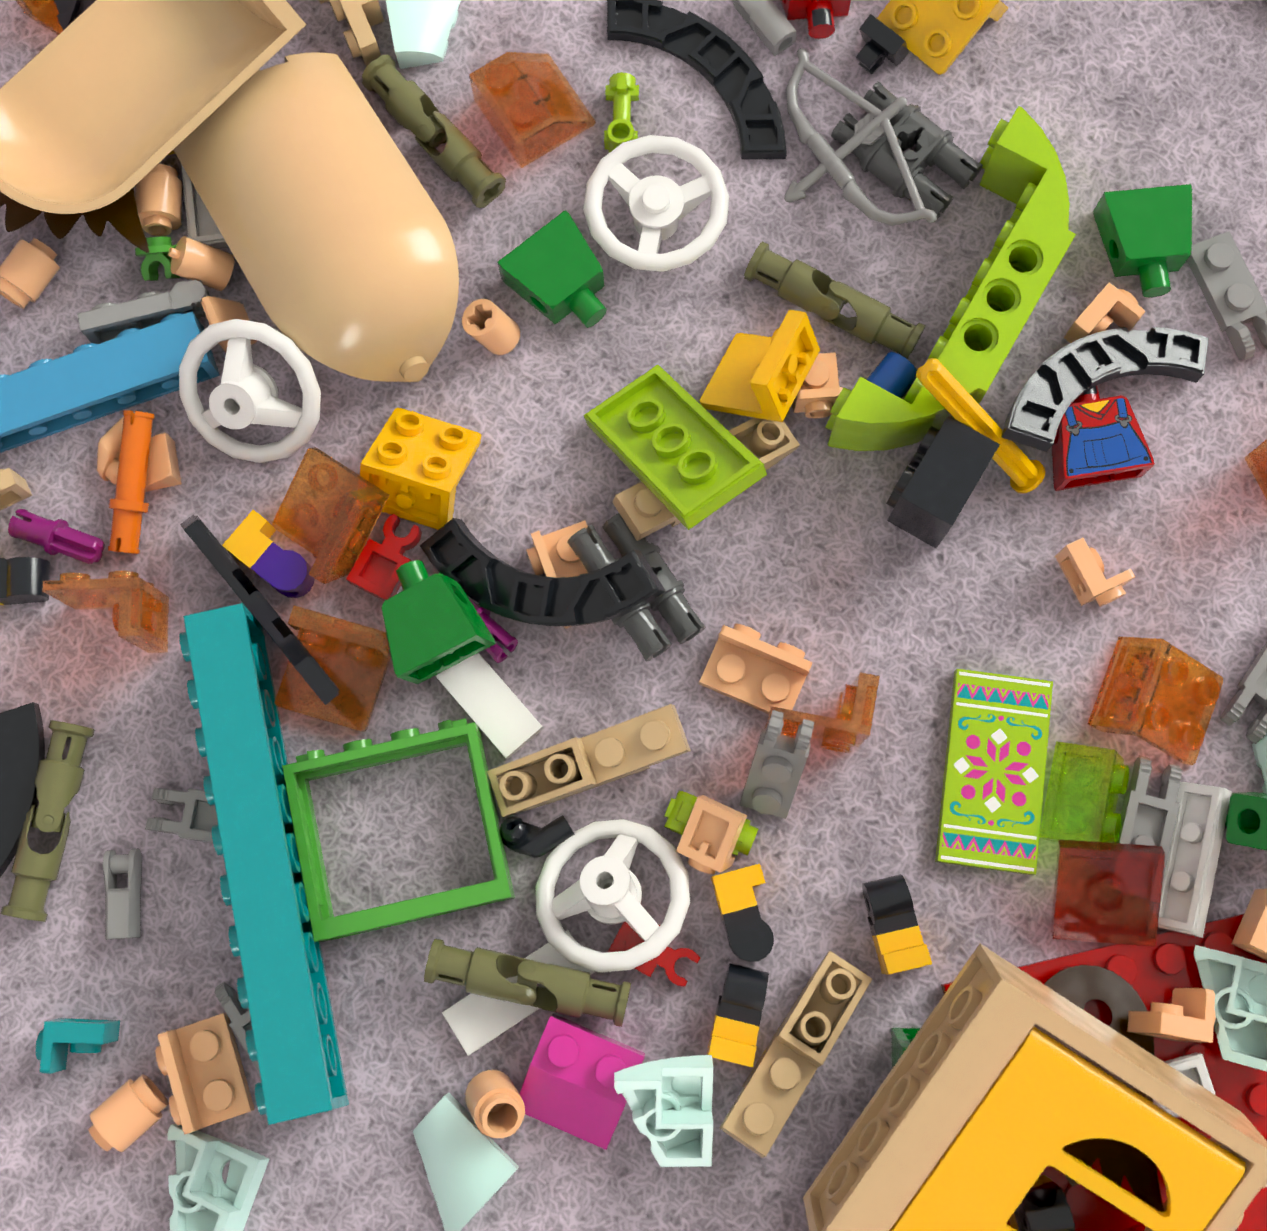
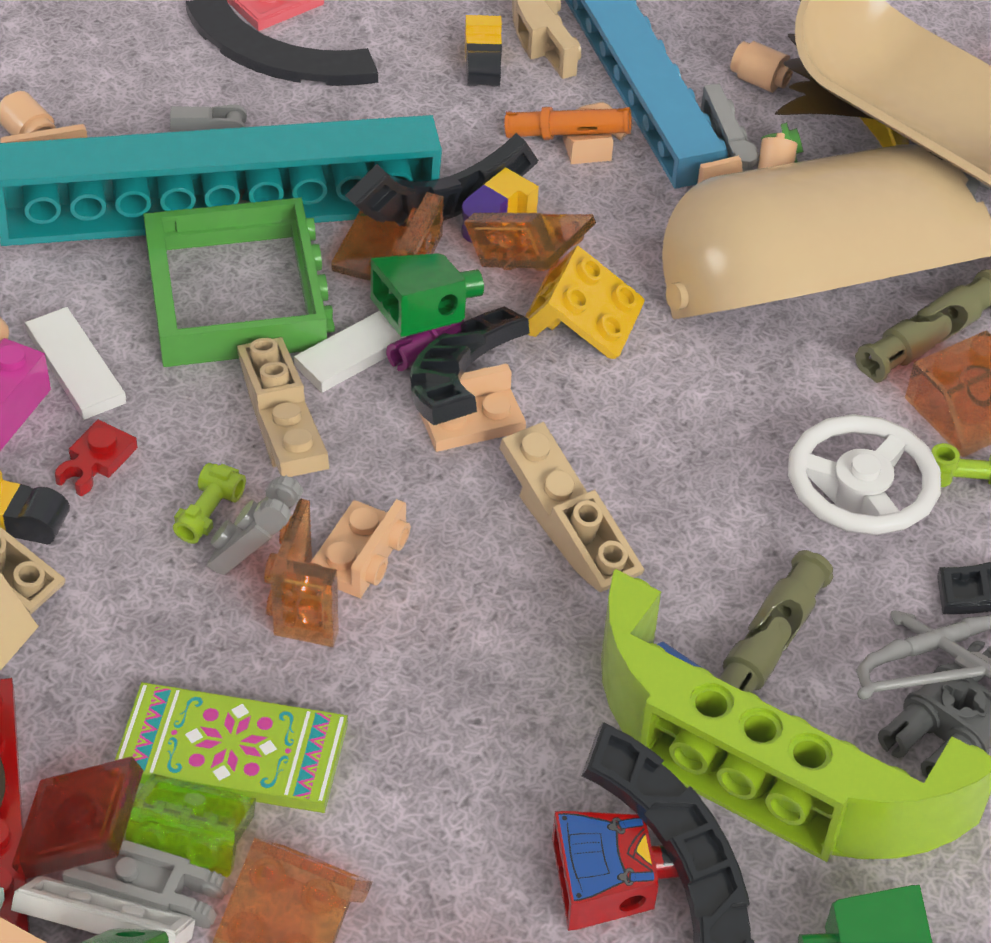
camera: 85 degrees right, 30 degrees down
(56, 537) = (522, 85): magenta axle -> none
(56, 785) = (301, 82): olive piece -> none
(83, 1034) = (94, 88): teal bracket -> none
(137, 606) = (452, 104): clear orange bracket -> none
(159, 200) = (837, 139): light nougat brick -> none
(249, 391) = (641, 174): white piece -> none
(378, 562) = (499, 282): red plate -> none
(491, 326) = (723, 353): light nougat piece -> none
(531, 839) = (215, 375): black arm -> none
(556, 272) = (784, 404): green torso -> none
(565, 989) = (80, 350): olive piece -> none
(611, 895) = (154, 414): white piece -> none
(671, 604) = (448, 469): dark grey pin -> none
(675, 446) = (594, 468): lime tile -> none
(711, 835) = (194, 483): light nougat bracket -> none
(745, 930) = (115, 517): leg -> none
(762, 372) = (678, 548): yellow bracket -> none
(819, 388) = (681, 617): light nougat bracket -> none
(894, 925) = (80, 638): leg -> none
(945, 475) = (550, 690): black brick -> none
(1023, 473) = (613, 703): yellow axle -> none
(1085, 574) = (445, 839): light nougat bracket -> none
(1108, 307) = (771, 885): light nougat bracket -> none

